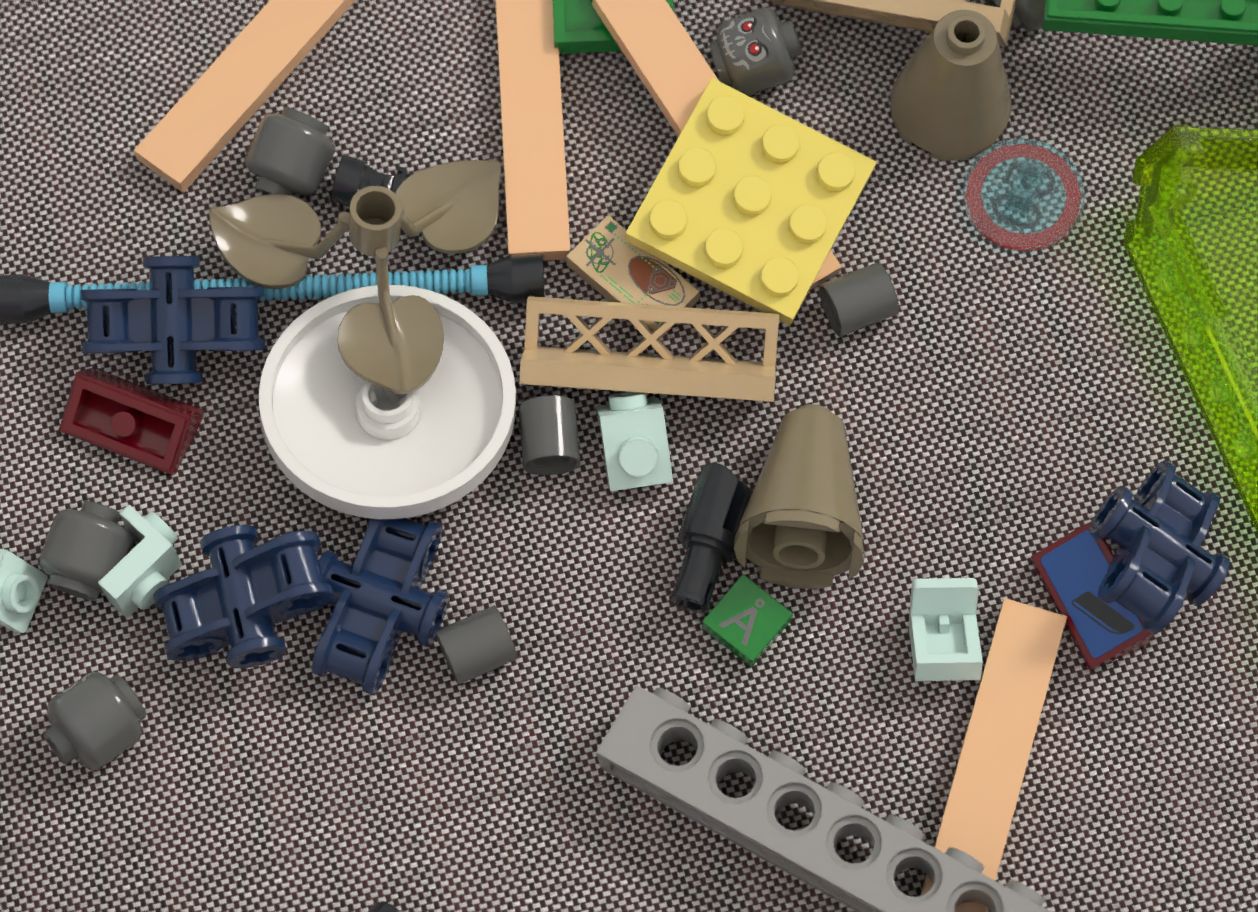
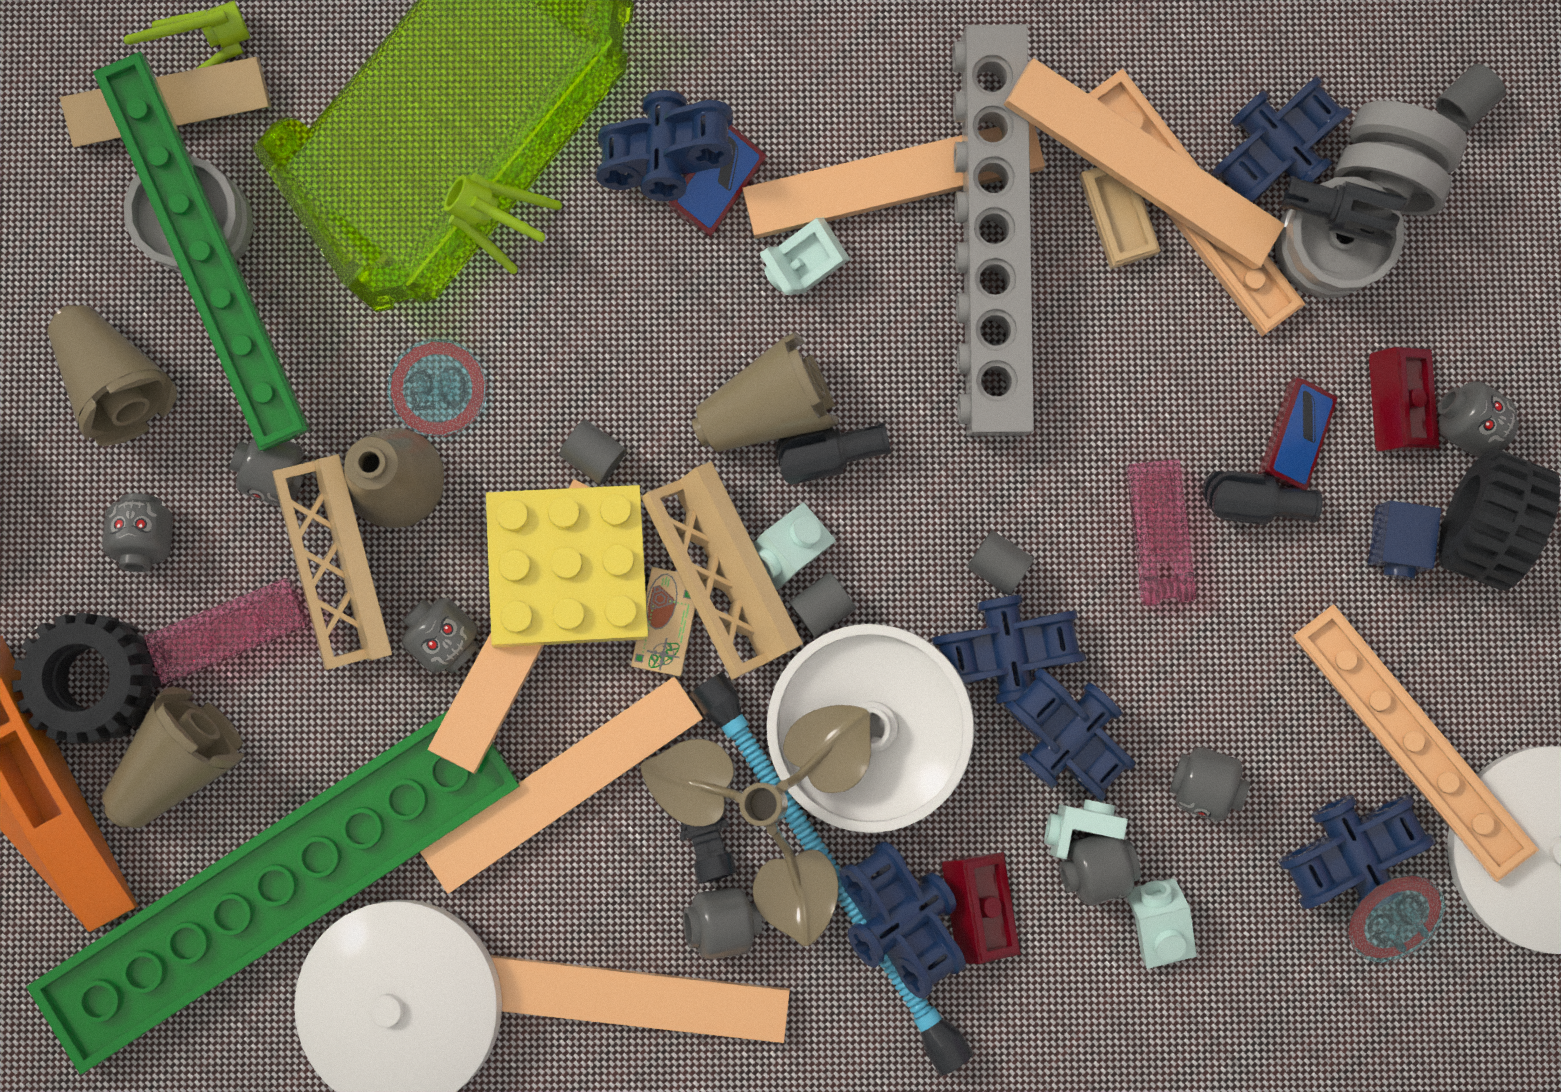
camera: 120 degrees left, 15 degrees up
(401, 842) = (1160, 530): none -> clear pink plate
(747, 620) = (870, 396): green tile -> none
(1198, 306) = (472, 203): none -> lime plant

